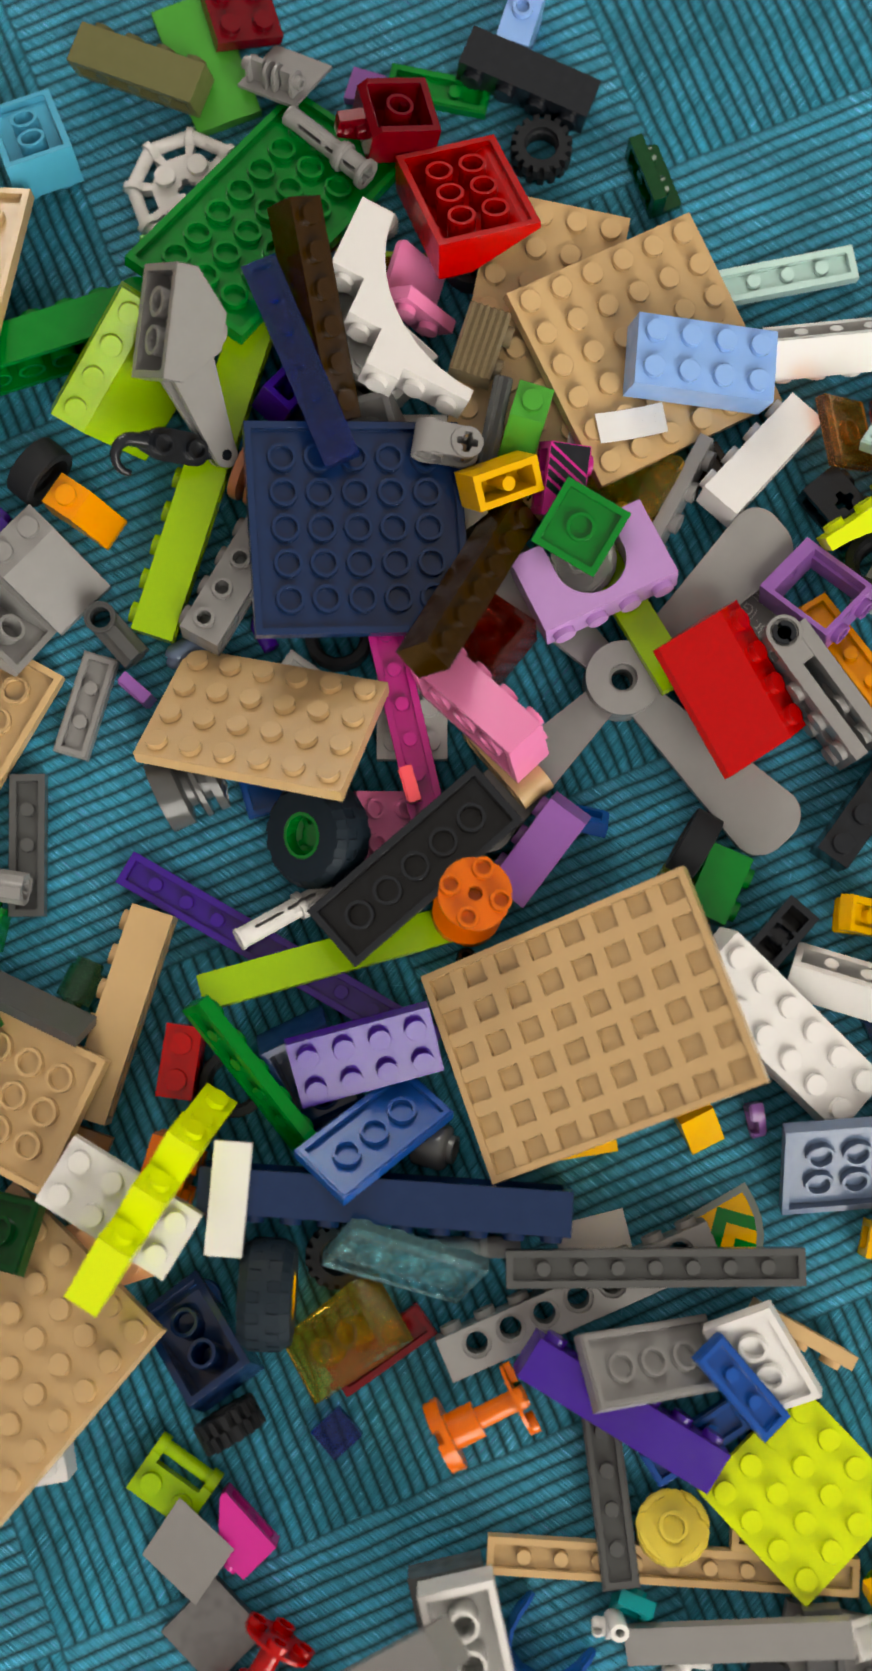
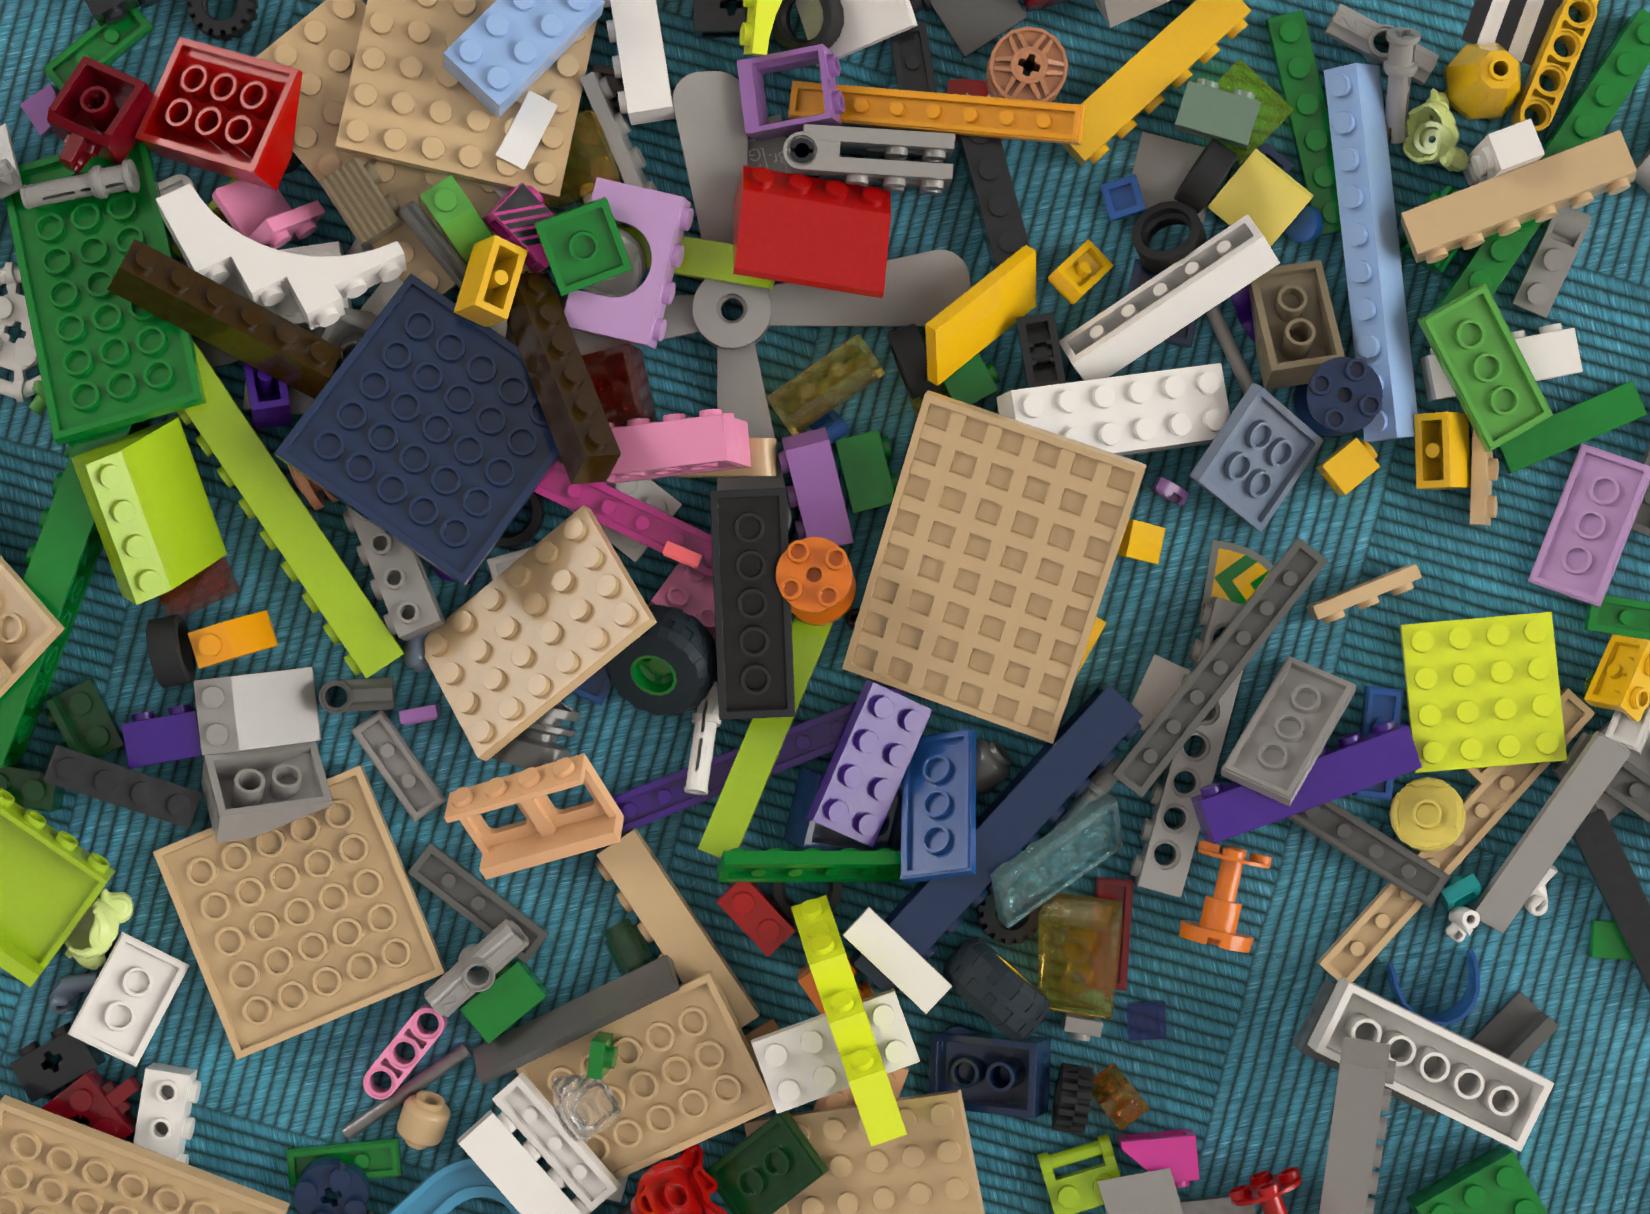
camera: 55 degrees left, 5 degrees up
(94, 459) = (201, 590): none -> clear red plate
(121, 851) = (547, 831): none -> light nougat window
(176, 344) = (171, 459): light grey slope -> none
(259, 1459) = (1118, 1097): none -> clear orange bracket
(291, 1385) = (1081, 1026): none -> light grey plate
(300, 361) = (261, 366): clear blue plate -> none
(440, 443) = (418, 305): light grey piece -> none
(584, 875) = (866, 470): none -> green brick
(623, 793) = (825, 385): none -> clear yellow brick
(741, 1387) = (1363, 674): blue tile -> none
(769, 1351) = (1357, 640): white plate -> none
(772, 864) = (981, 315): none -> yellow tile

